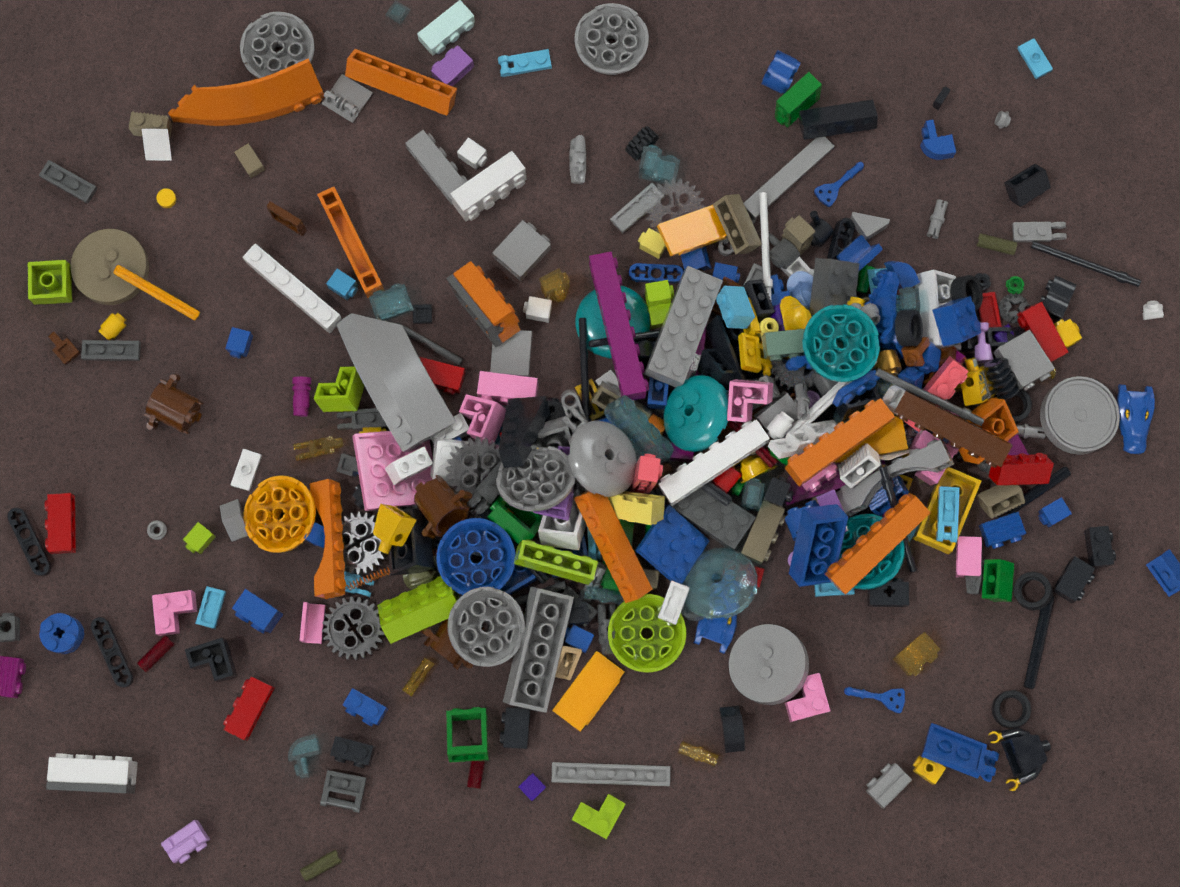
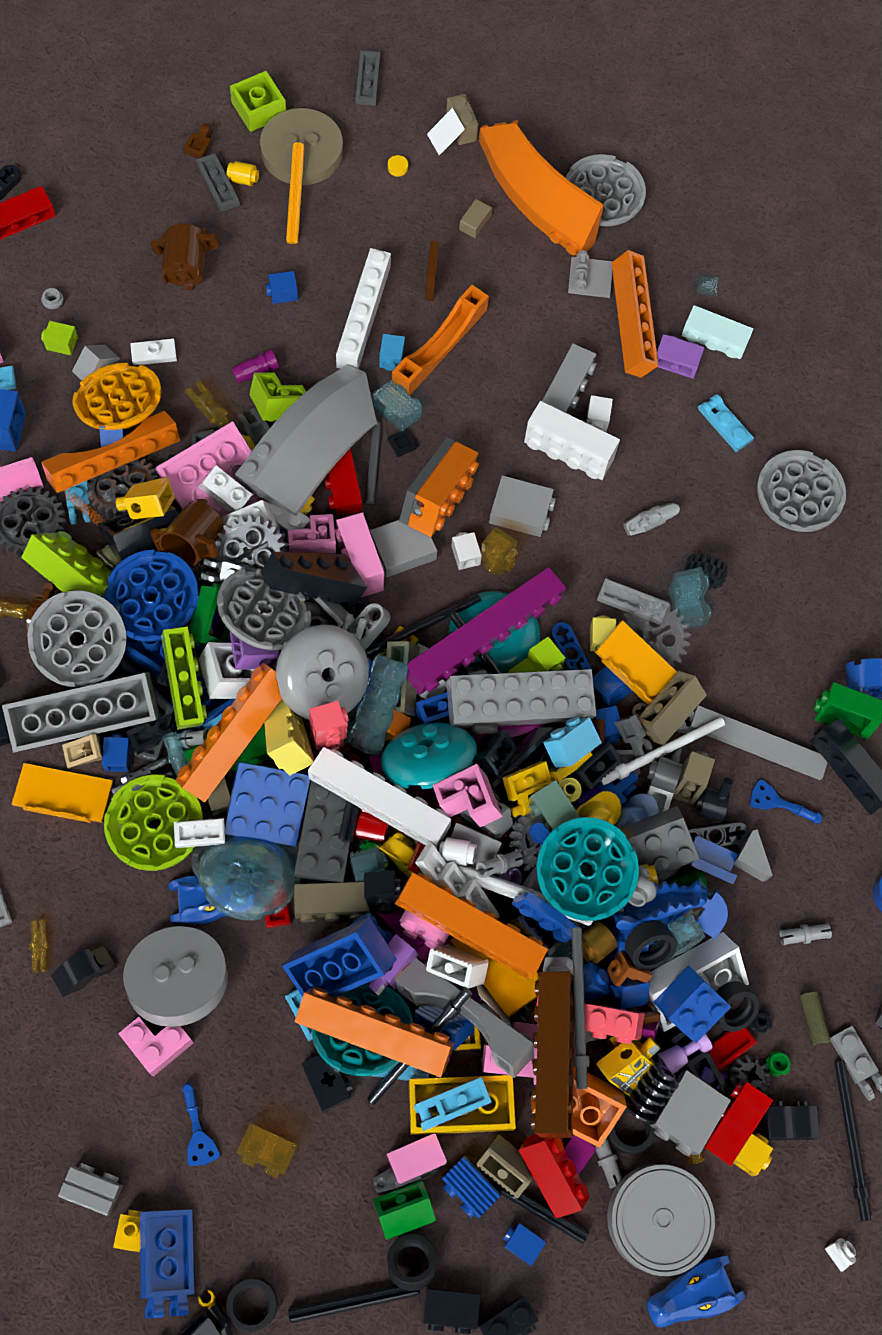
camera: 55 degrees right, 10 degrees down
(743, 260) = (632, 732): none -> dark grey plate

